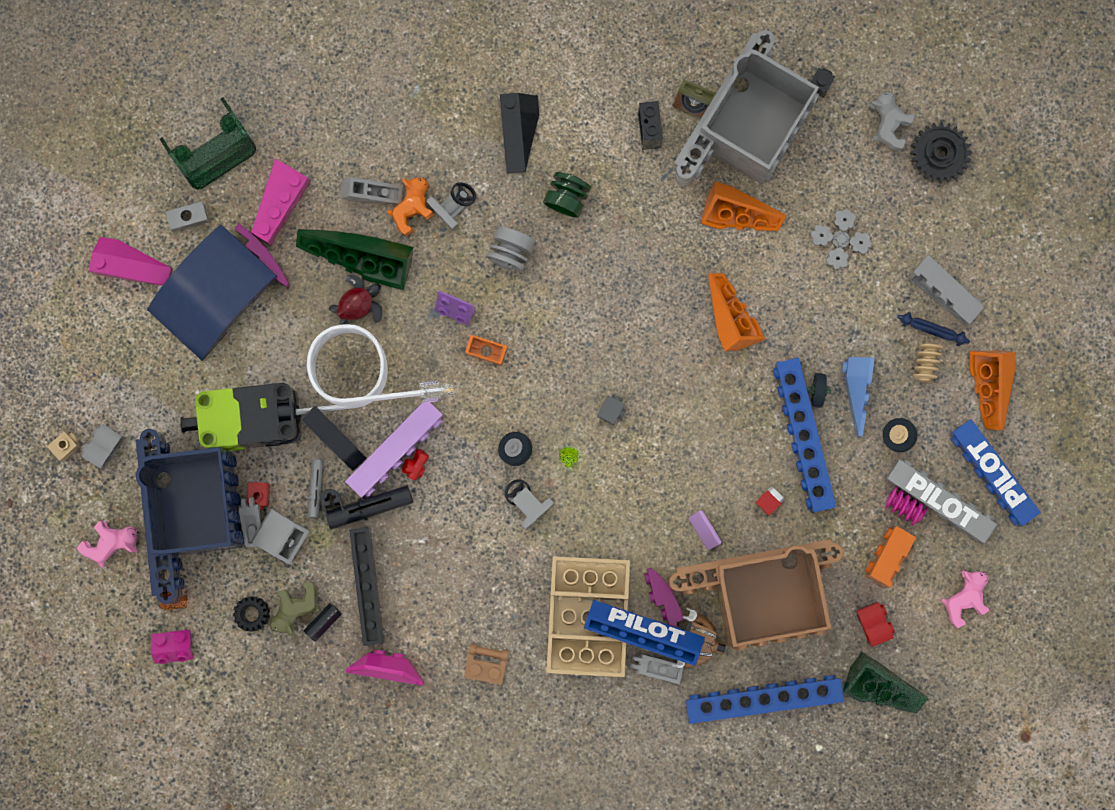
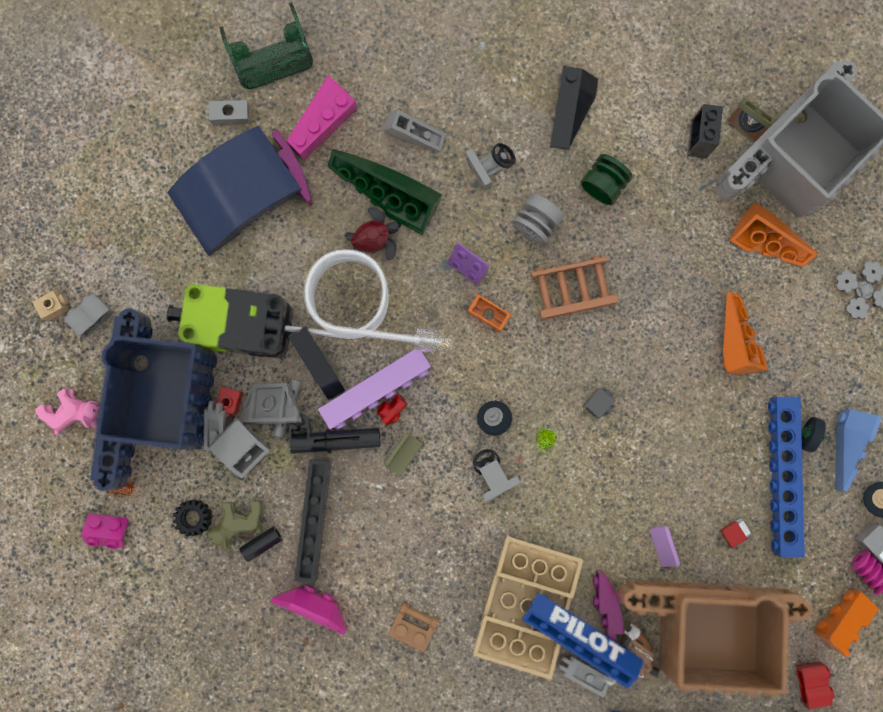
camera: 10 degrees right, 0 degrees up
(122, 261) = (156, 141): dark pink wedge -> none
(298, 488) = (270, 405): none -> light grey wing
(413, 204) = (450, 154): orange animal -> none
(436, 504) = (403, 454): none -> olive panel
(577, 317) = (568, 306): none -> nougat fence

